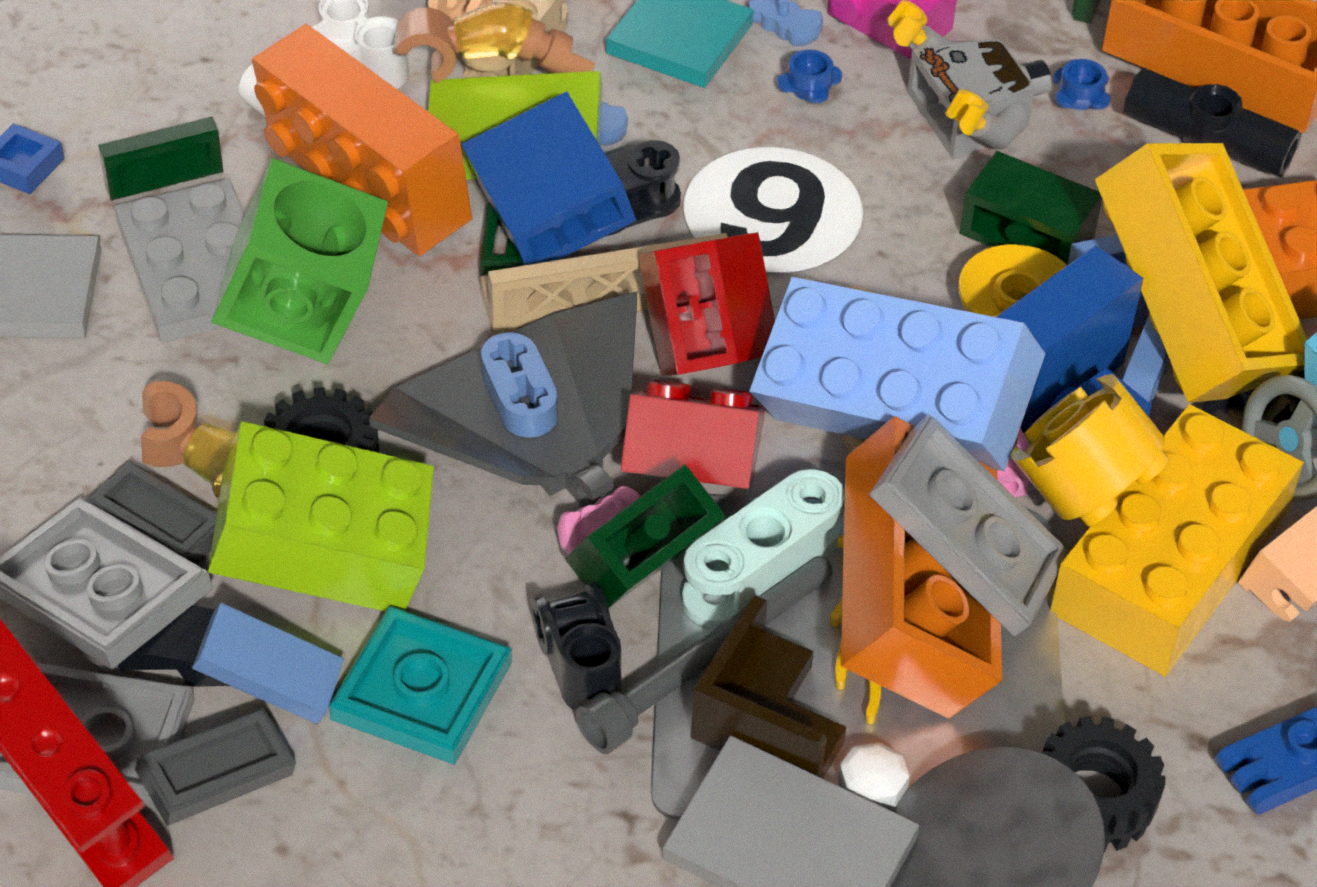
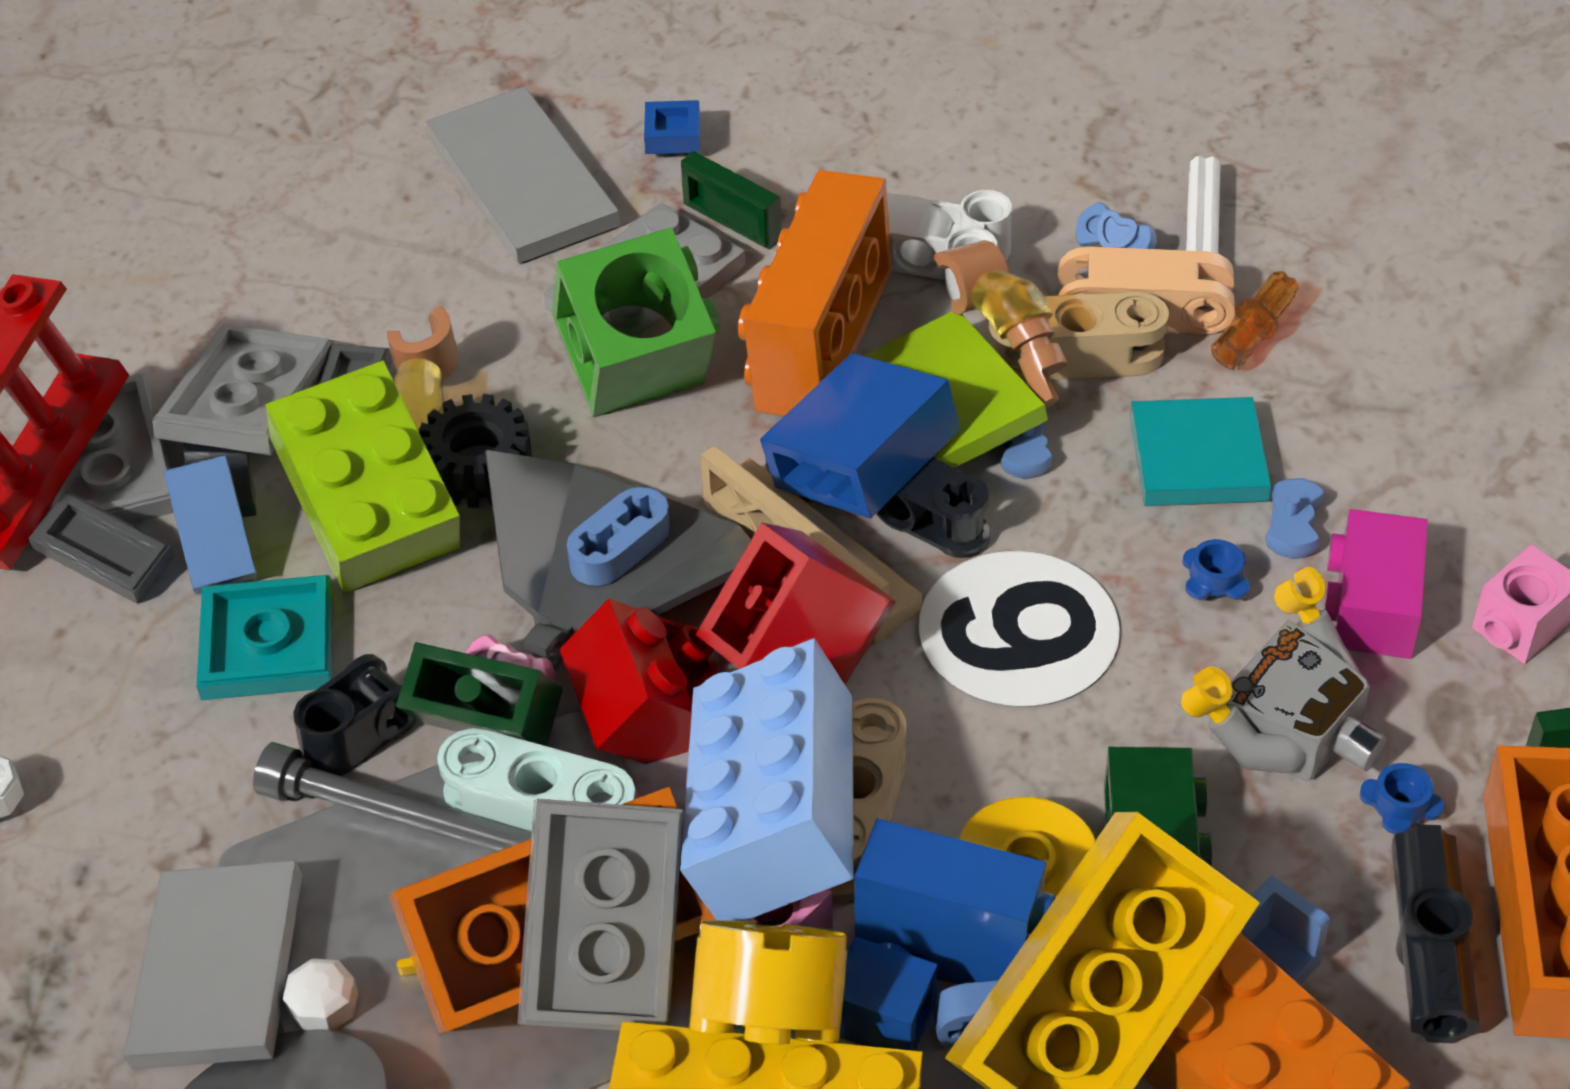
camera: 65 degrees right, 0 degrees up
(751, 693) = (346, 859): dark brown panel -> none

